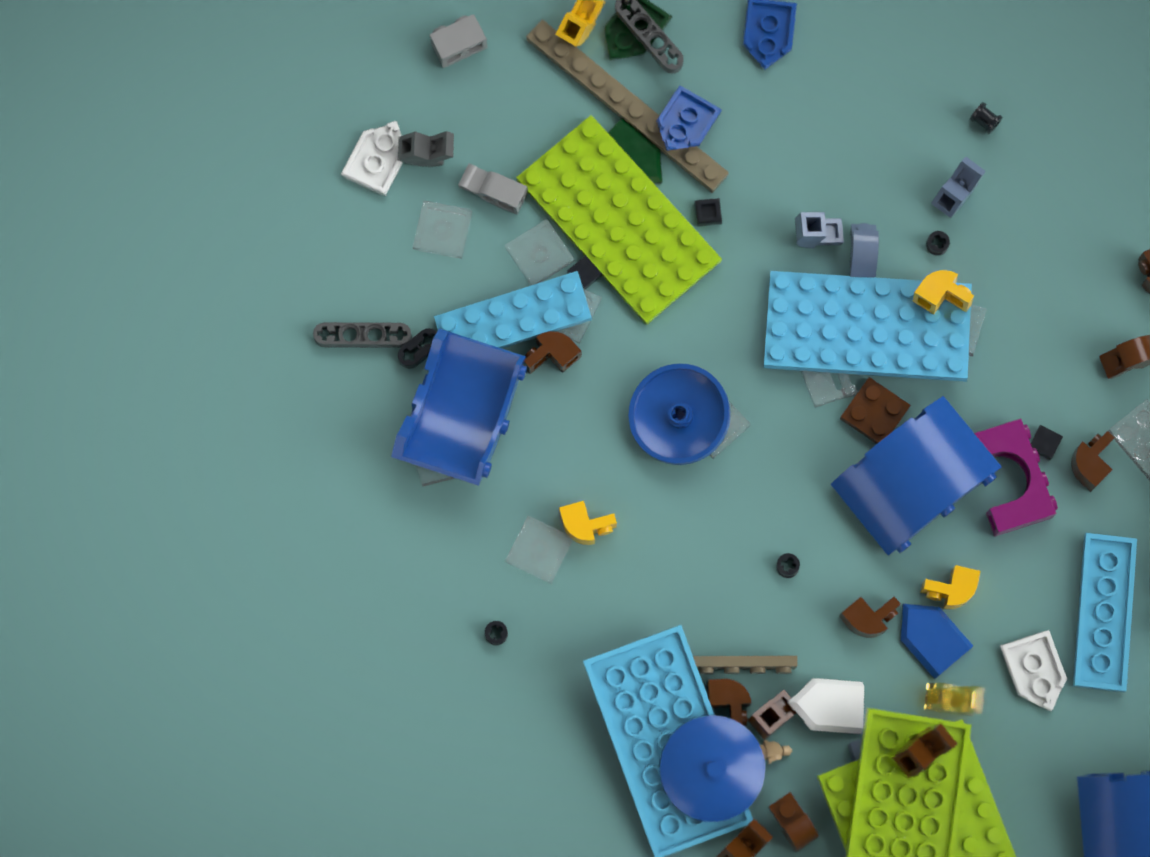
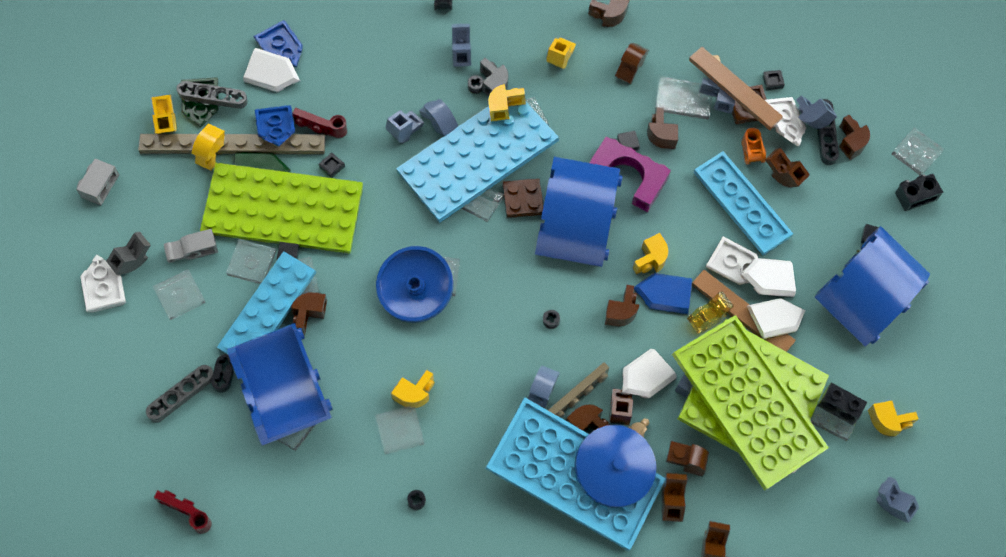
camera: 45 degrees left, 10 degrees down
(278, 456) = (185, 507): none -> dark red plate
(596, 90) = (207, 145): none -> yellow brick
(713, 628) = (543, 386): none -> sand blue brick
(732, 53) = (270, 71): none -> white tile
(732, 158) = (321, 125): none -> dark red plate
(924, 749) = (725, 347): reddish brown brick -> none
(966, 257) = (494, 75): none -> brick
(994, 728) = (711, 286): none -> medium nougat tile
(1022, 762) = (776, 317): none -> white tile
(1057, 716) = (771, 277): none -> white tile
(1061, 281) = (560, 52): none -> yellow brick

